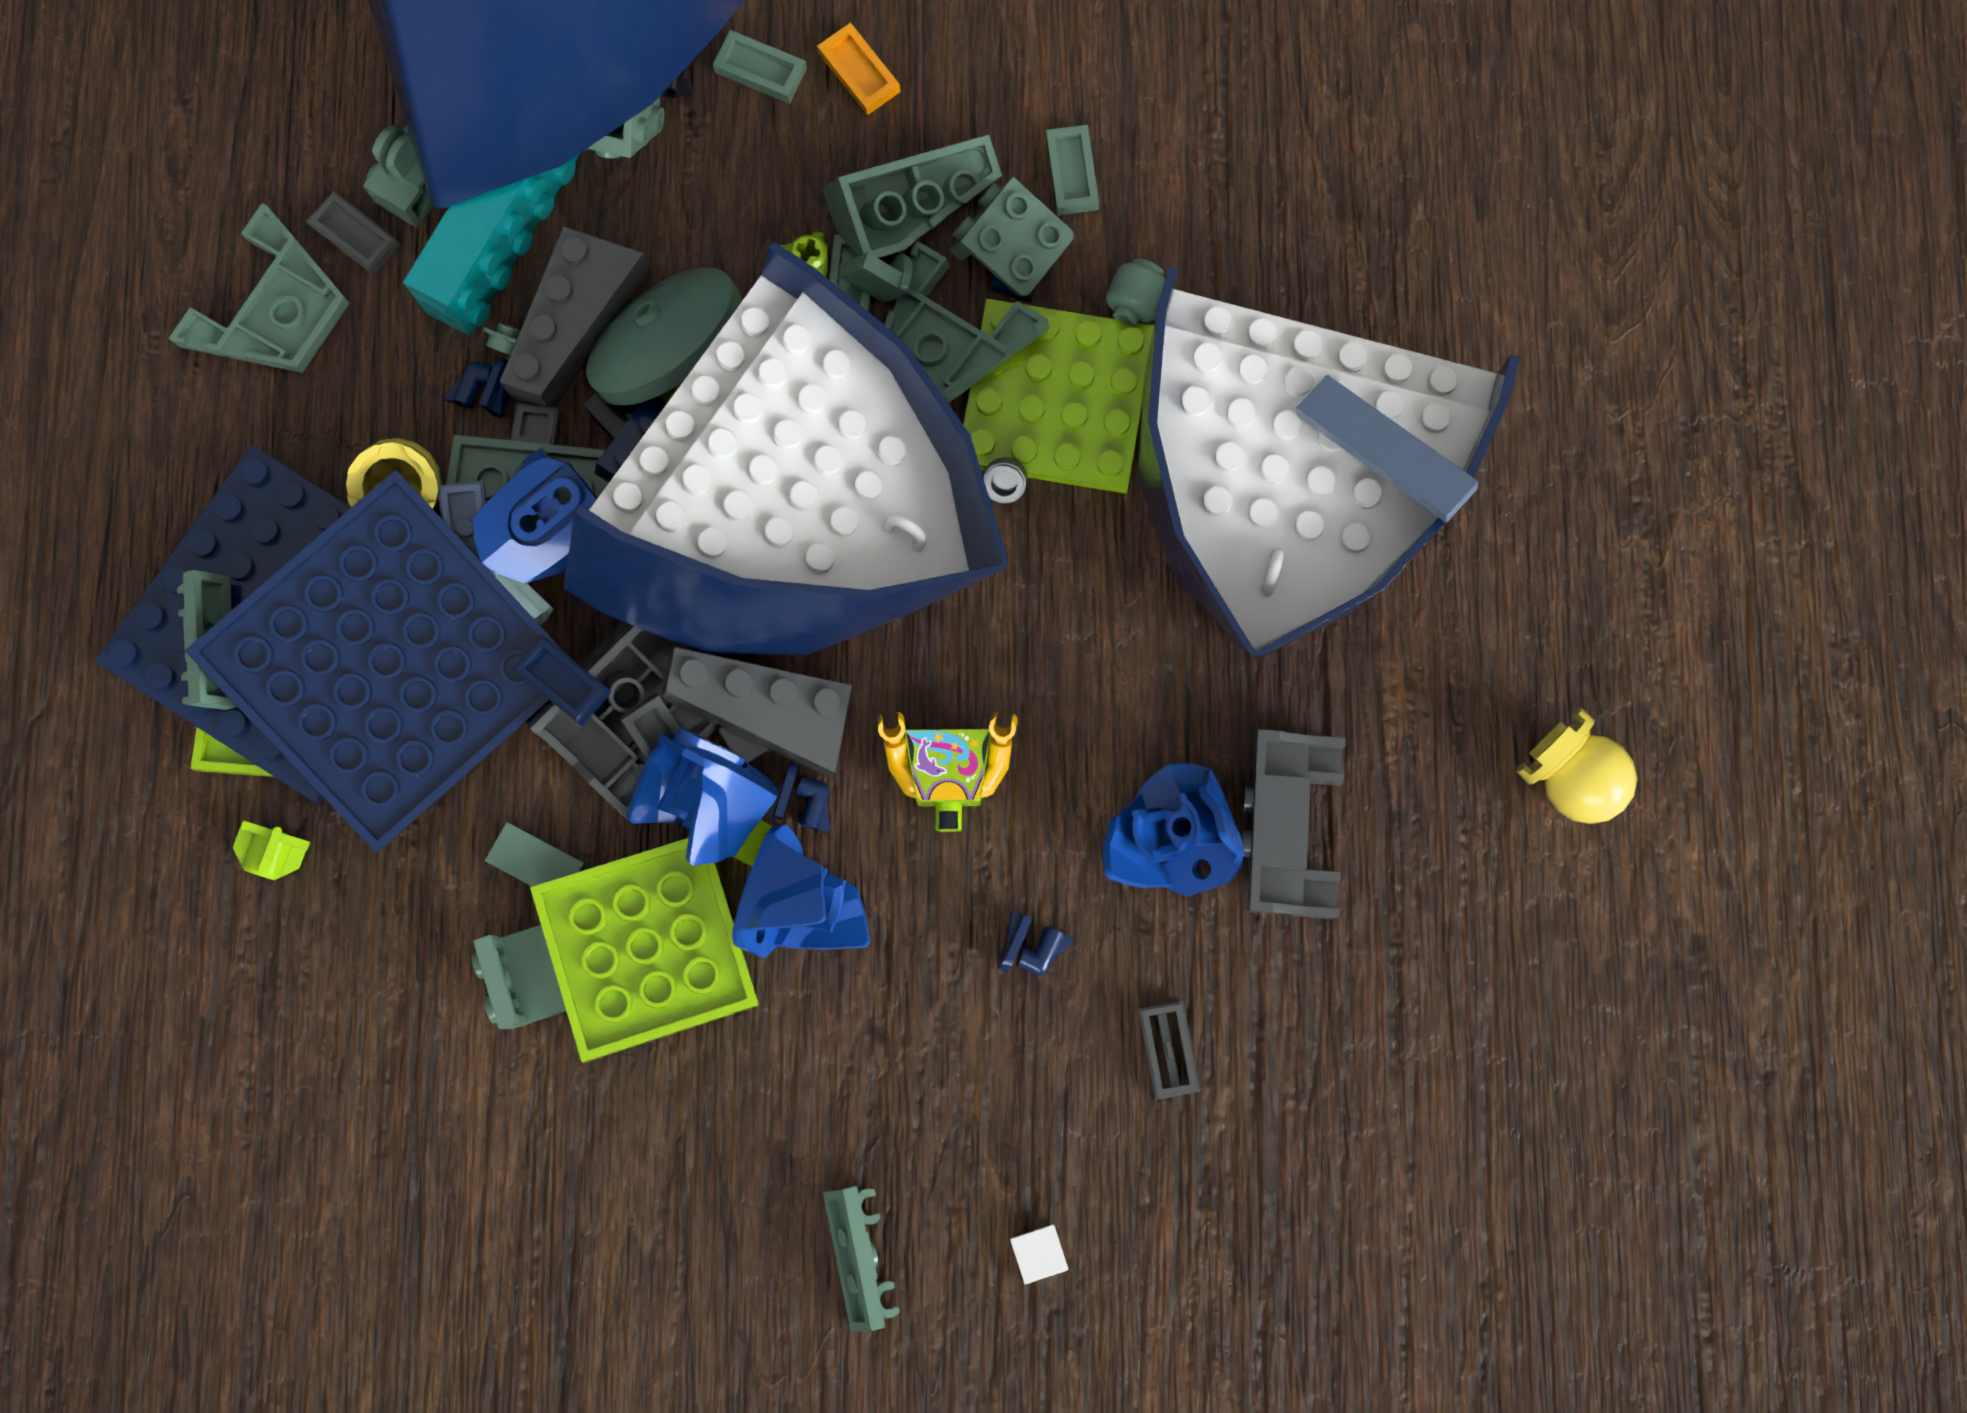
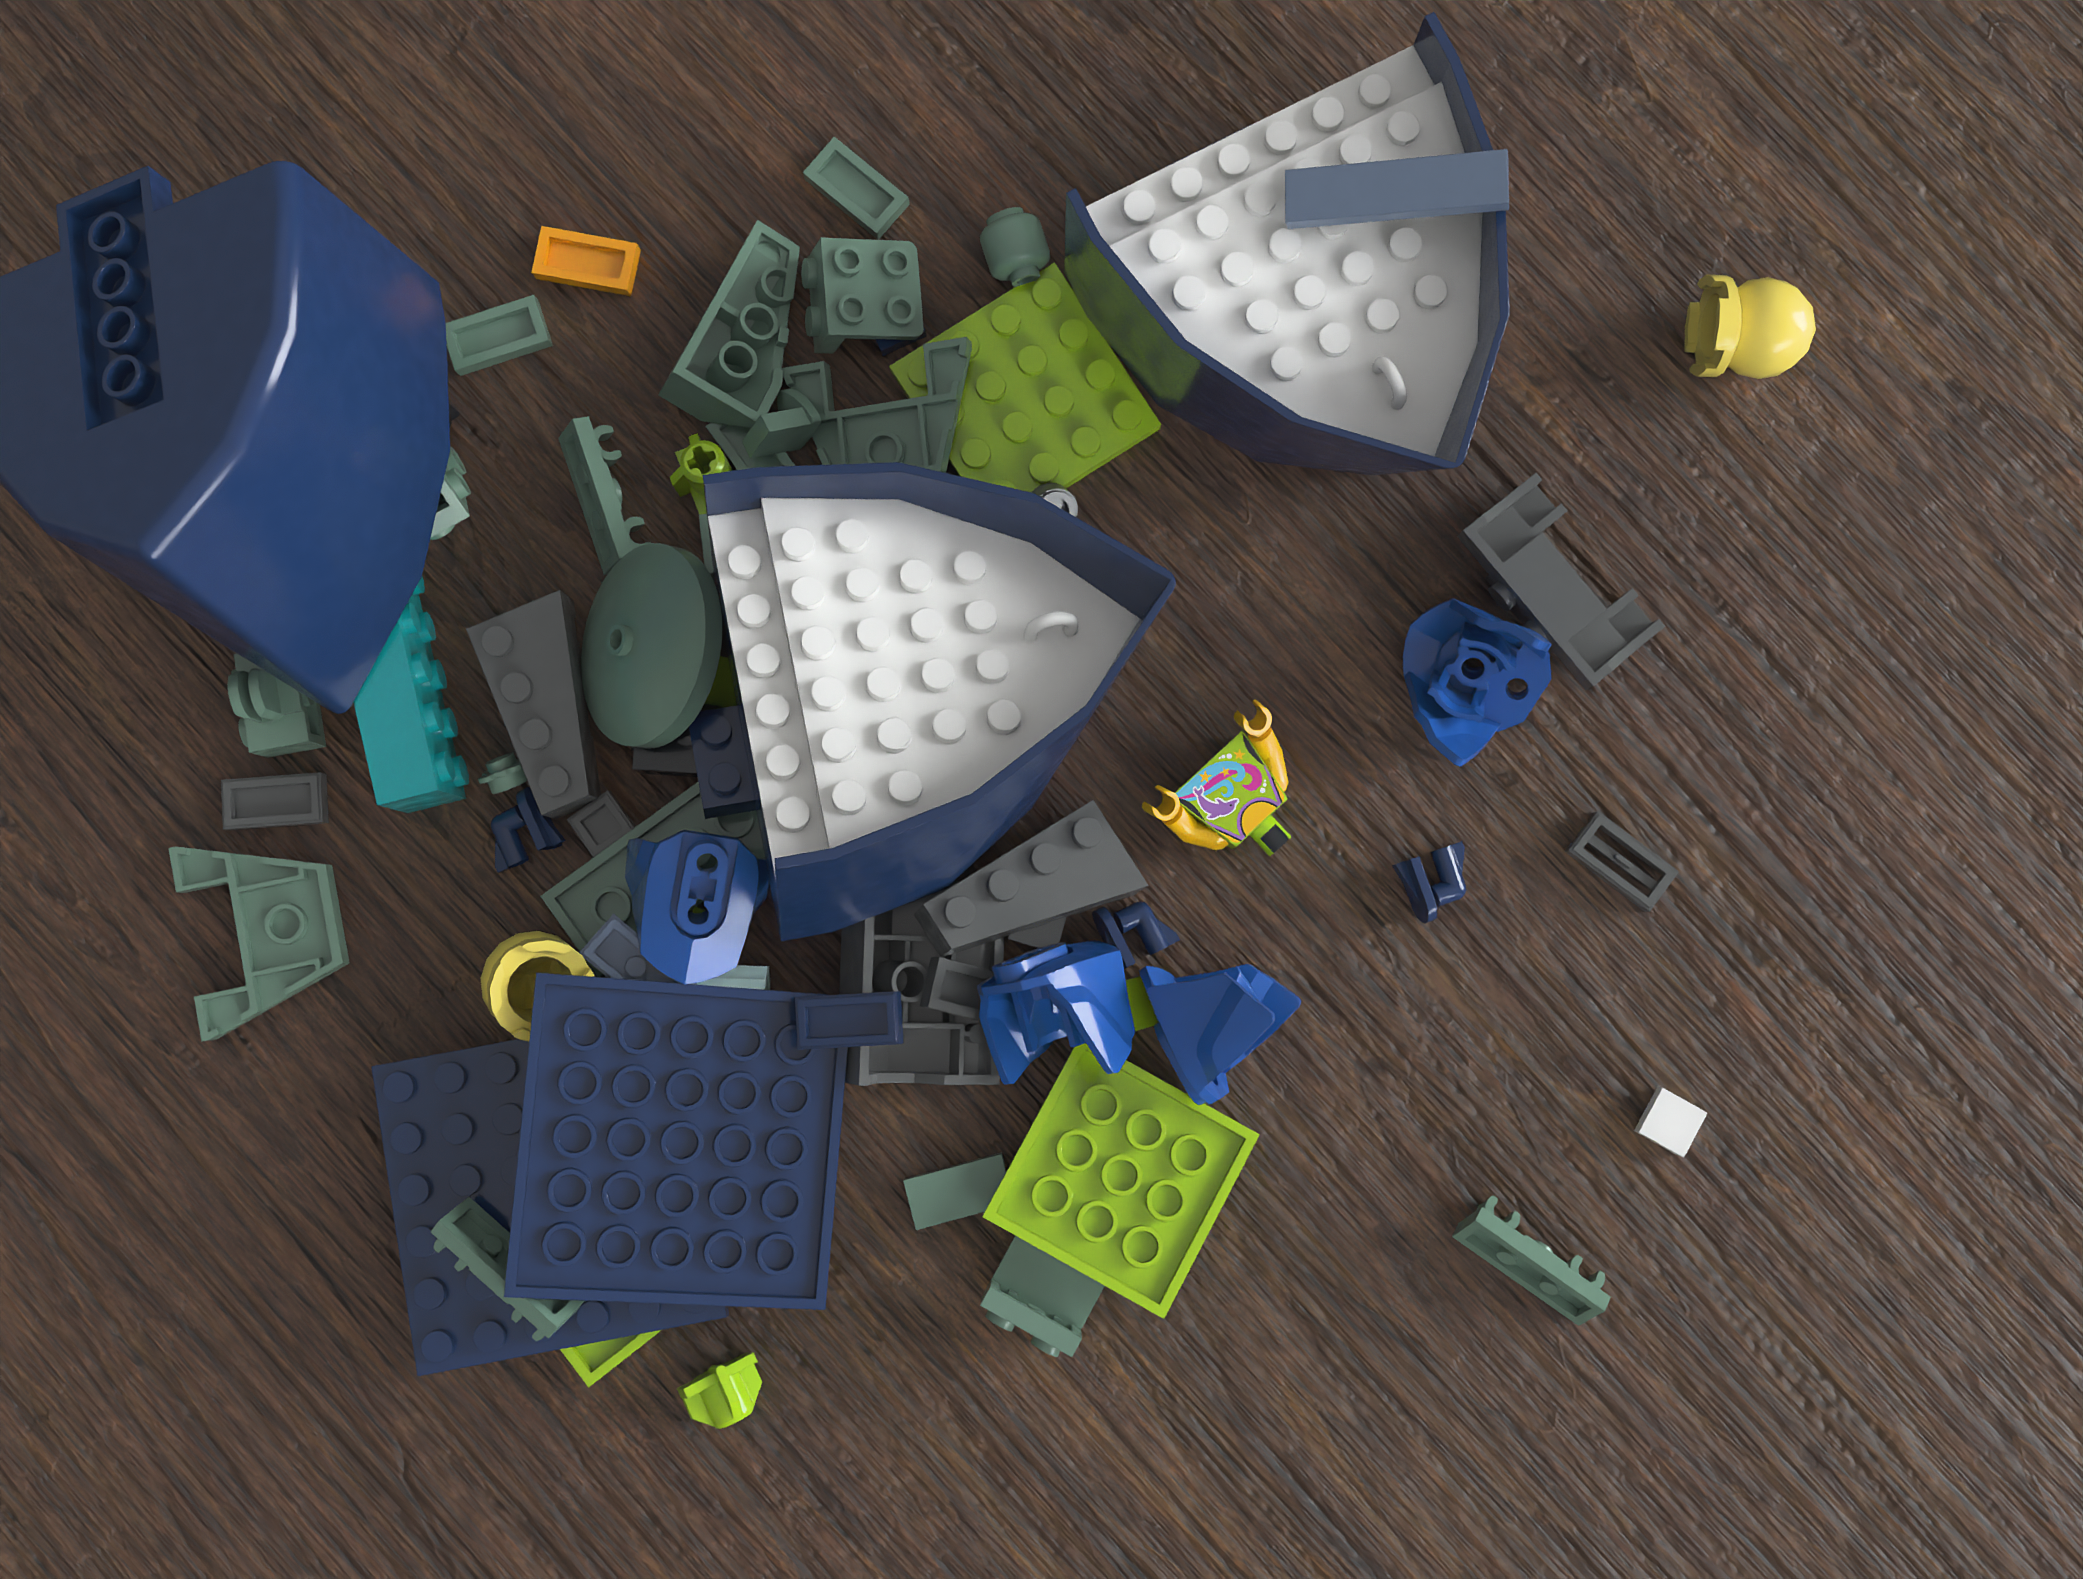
camera: 45 degrees left, 5 degrees up
(728, 216) = (598, 491): none -> sand green plate

